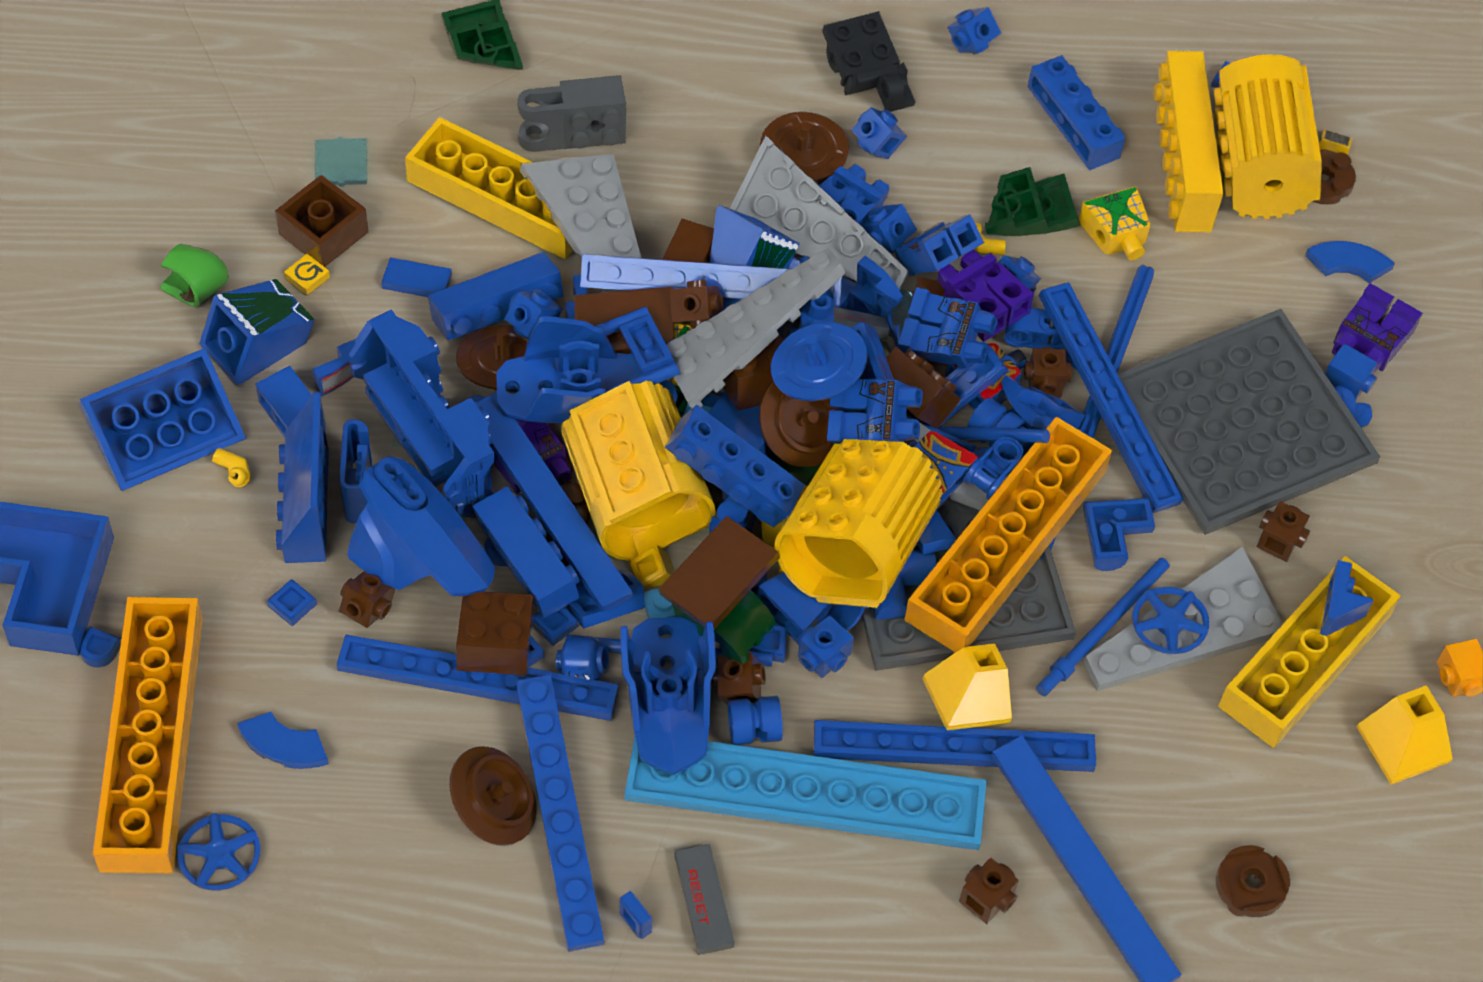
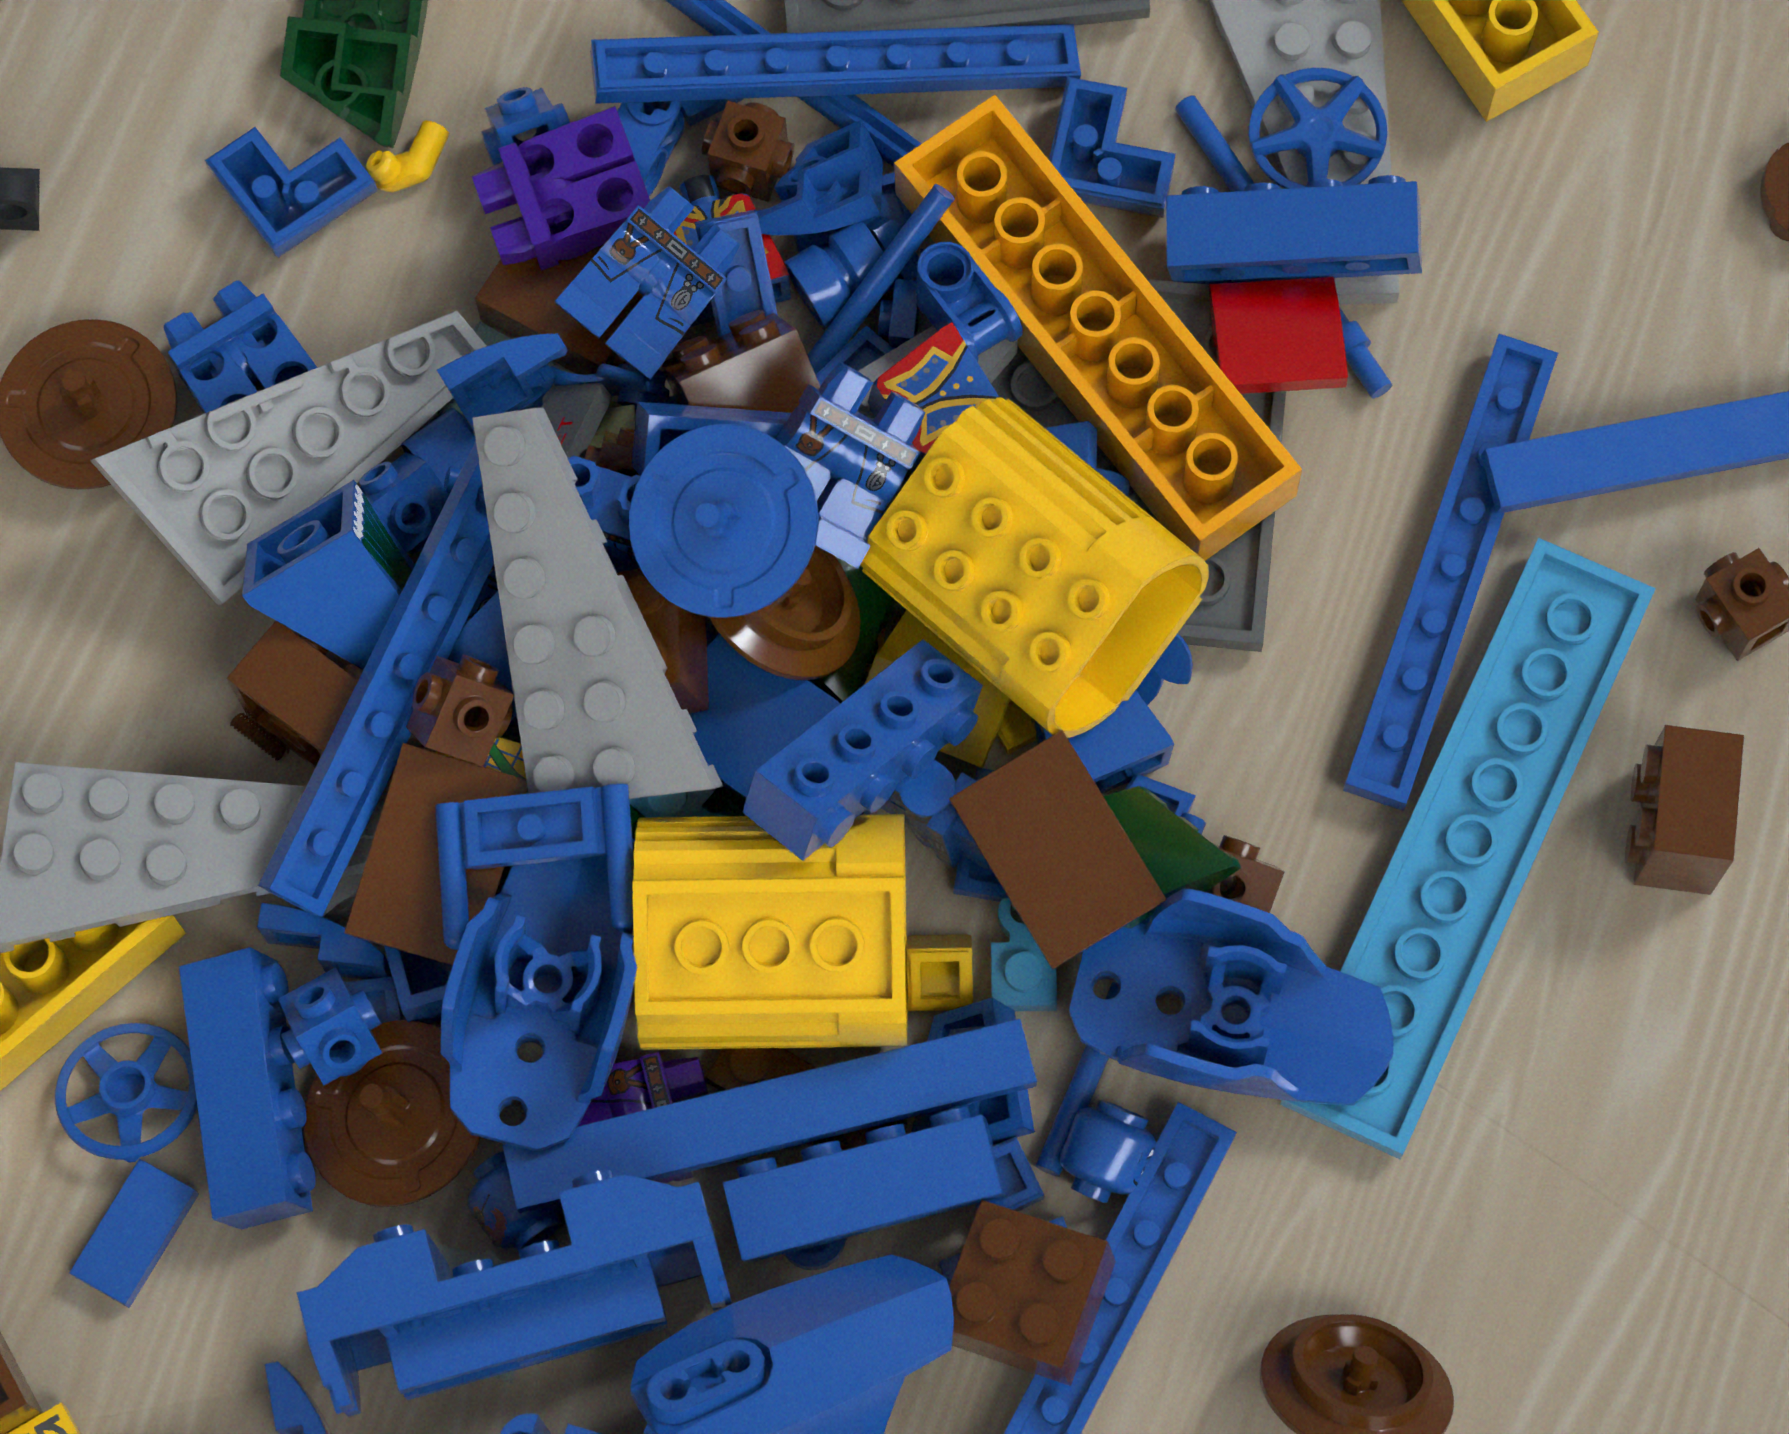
camera: 65 degrees left, 15 degrees up
(480, 254) = (126, 1092): none -> blue wheel
(560, 813) = (1401, 1278): blue plate -> none
(635, 915) = (1639, 1203): blue tile -> none
(704, 899) = (1627, 1078): dark grey tile -> none
(755, 720) = (1320, 874): blue wheel -> none
(825, 647) = (1209, 719): blue brick -> none
(857, 880) = (1686, 809): none -> reddish brown brick
(878, 132) = (101, 258): blue brick -> none
(889, 226) = (335, 313): blue brick -> none
(938, 193) = (292, 203): none -> blue brick
(939, 246) = (425, 238): blue hips -> none
(971, 688) = (1365, 503): yellow slope -> none
(1045, 624) = (1279, 334): none -> red slope
(1104, 616) = (1294, 231): none -> blue brick

